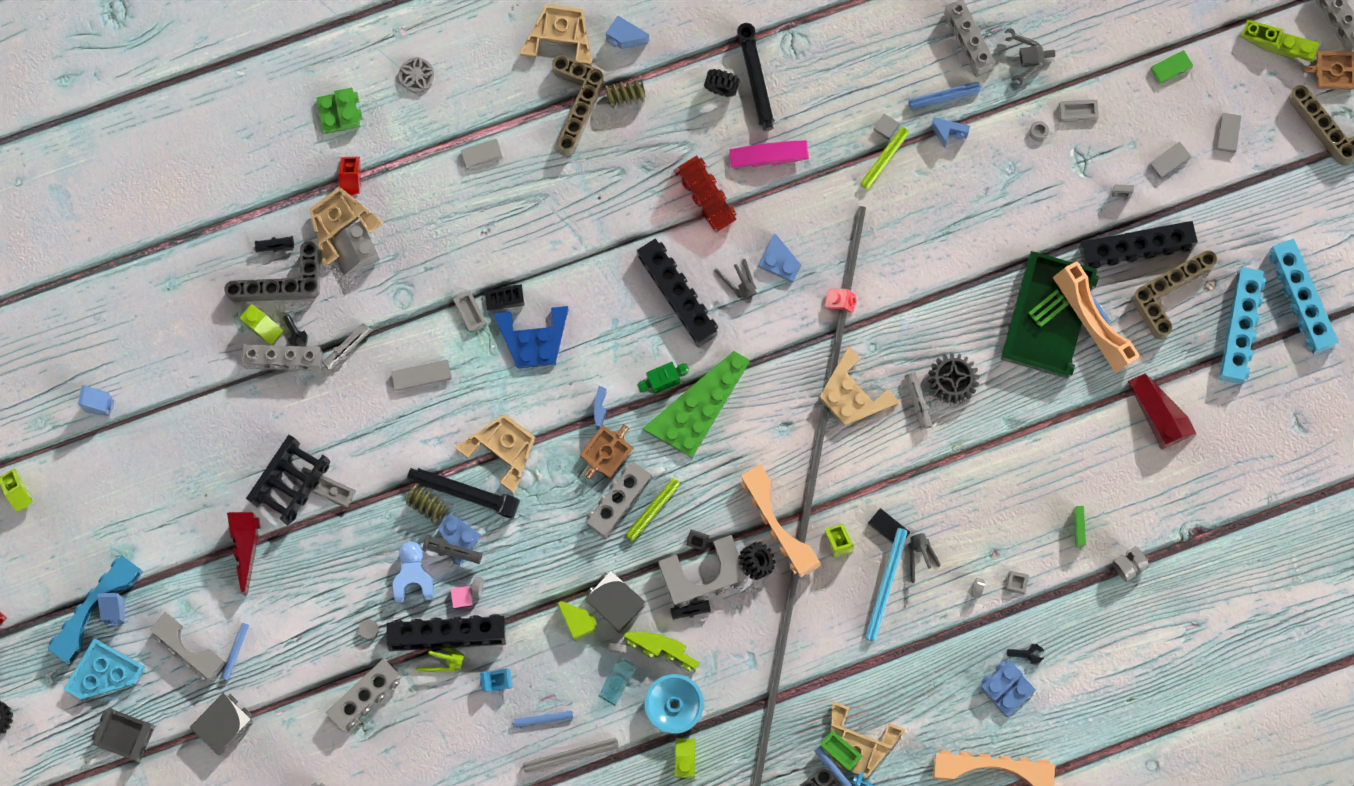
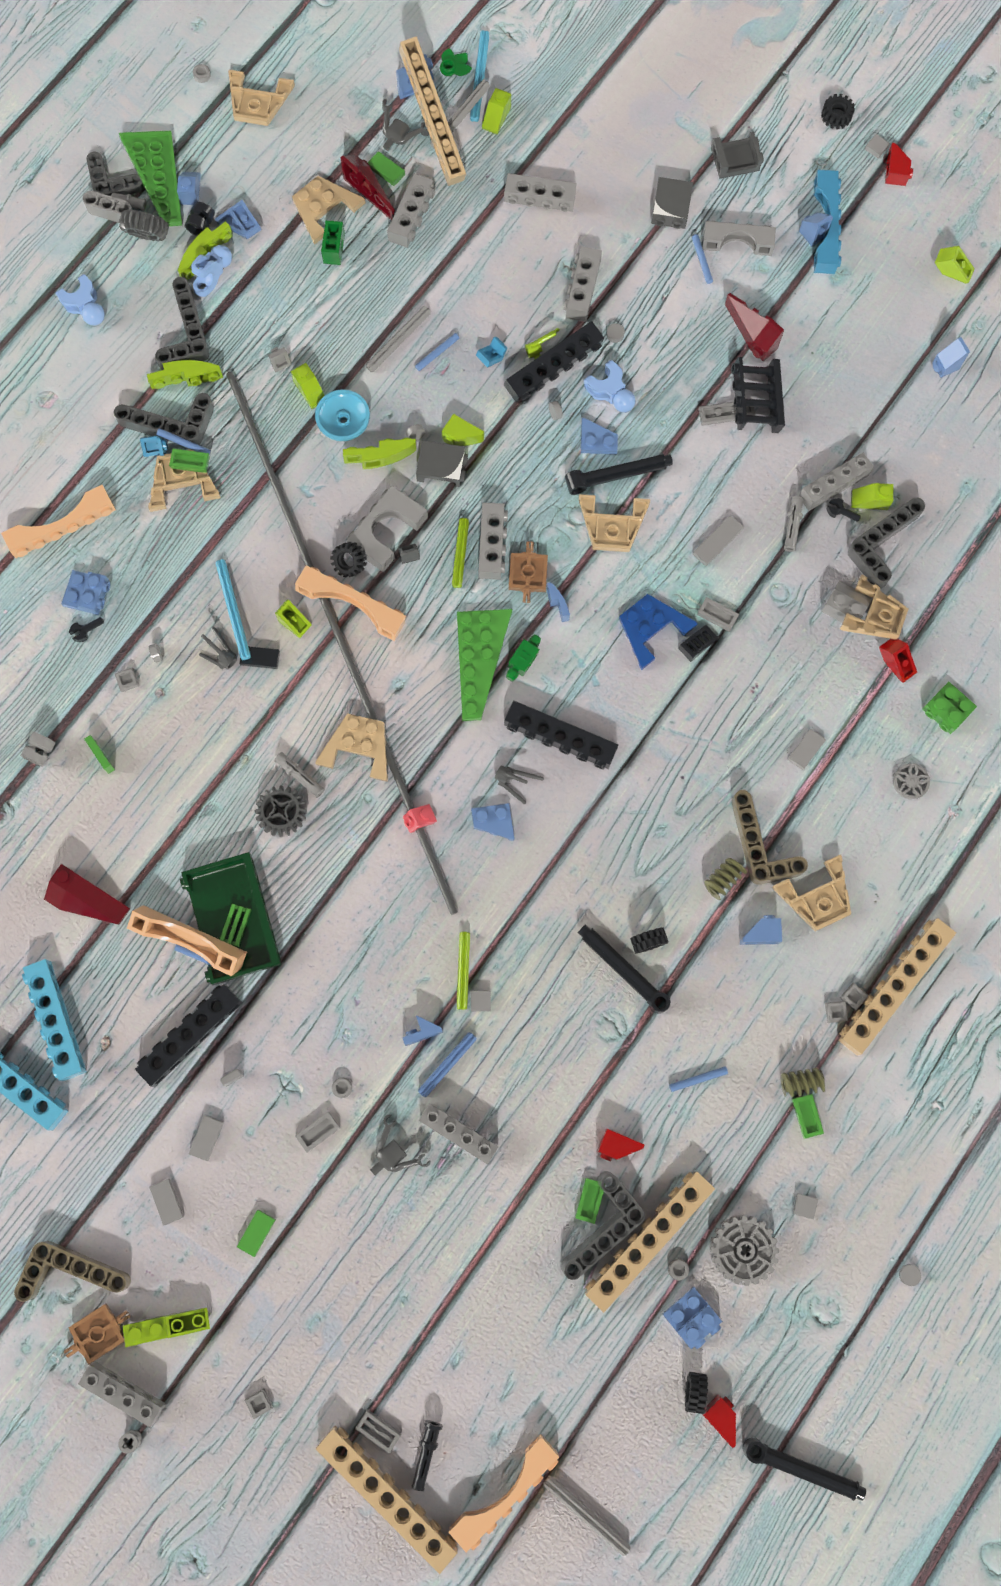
camera: 145 degrees right, 0 degrees up
(102, 671) = (786, 186): medium azure plate -> none
(274, 244) = (913, 567): black pin -> none
(426, 504) = (639, 444): olive piece -> none
(442, 548) = (602, 419): dark grey pin -> none
(461, 597) = (563, 397): bright pink tile -> none
(617, 681) = (398, 410): clear light blue slope -> none
(690, 610) = (376, 495): black pin -> none
(705, 193) = (596, 832): clear red wedge -> none
(769, 153) = (565, 905): dark pink slope -> none
(1169, 286) = (138, 1013): dark tan beam -> none

